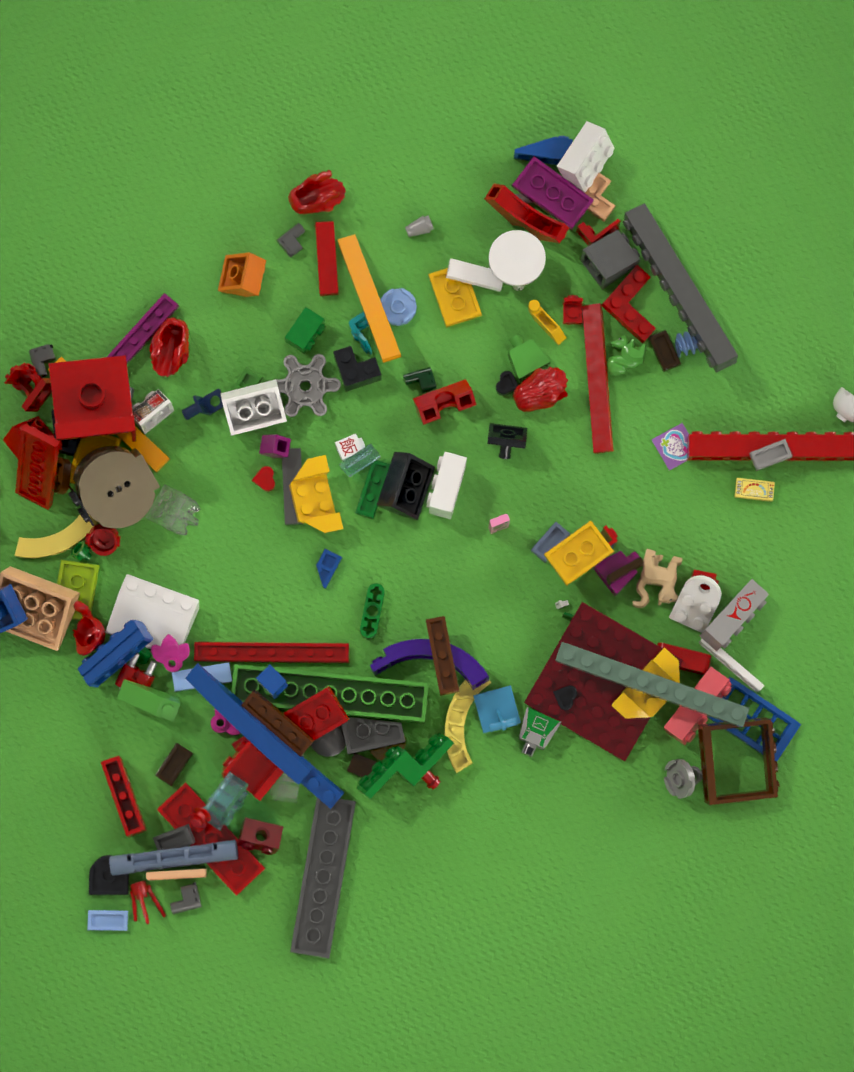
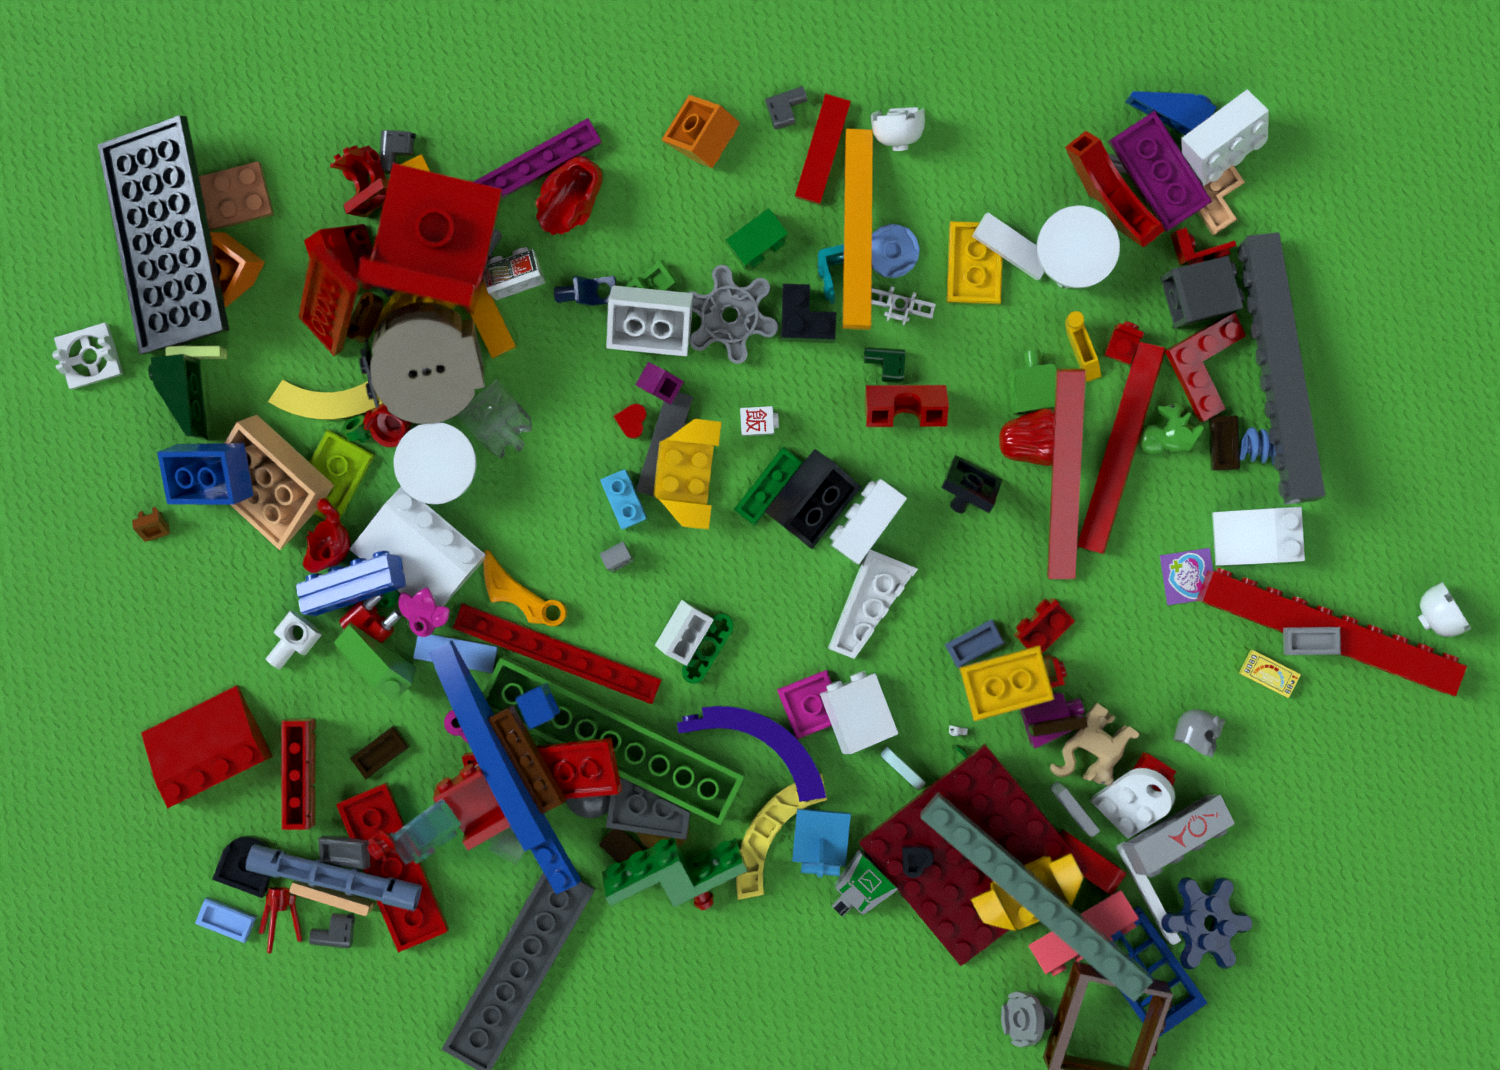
camera: 25 degrees right, 10 degrees up
(52, 804) = (204, 746): none -> red slope
(85, 713) = (288, 642): none -> white piece
(144, 550) = (435, 463): none -> white piece
(219, 622) = (504, 588): none -> light orange piece
(271, 833) = (470, 896): dark red brick -> none
(279, 531) = (624, 499): none -> medium azure brick
(288, 572) = (616, 557): none -> light grey brick
(317, 194) = (841, 56): red hair -> none
(327, 566) = (670, 567): blue tile -> none
(352, 605) = (684, 632): none -> white brick
(360, 460) = (764, 443): clear light blue tile -> none
(371, 226) = (898, 127): none -> white cylinder
(420, 226) = (963, 151): light grey cone -> none
(421, 340) = (891, 306): none -> white piece
(442, 655) = (775, 749): reddish brown plate -> none
(460, 621) = (805, 705): none -> dark pink tile
(469, 534) = (869, 600): none -> white wing
(489, 614) = (858, 712): none -> white brick
(499, 523) = (915, 598): bright pink tile -> none
(506, 384) = (998, 410): black tile -> none
(534, 641) = (902, 768): none -> light aqua tile
(566, 405) = (1066, 473): none -> red tile
(594, 510) = (1044, 626): none -> red bracket
(658, 624) = (1074, 809): none -> light grey tile
(710, 402) = (1258, 536): none -> white slope
(721, 542) = (1199, 730): none -> light grey helmet
(767, 673) = (1191, 919): none -> dark blue plate

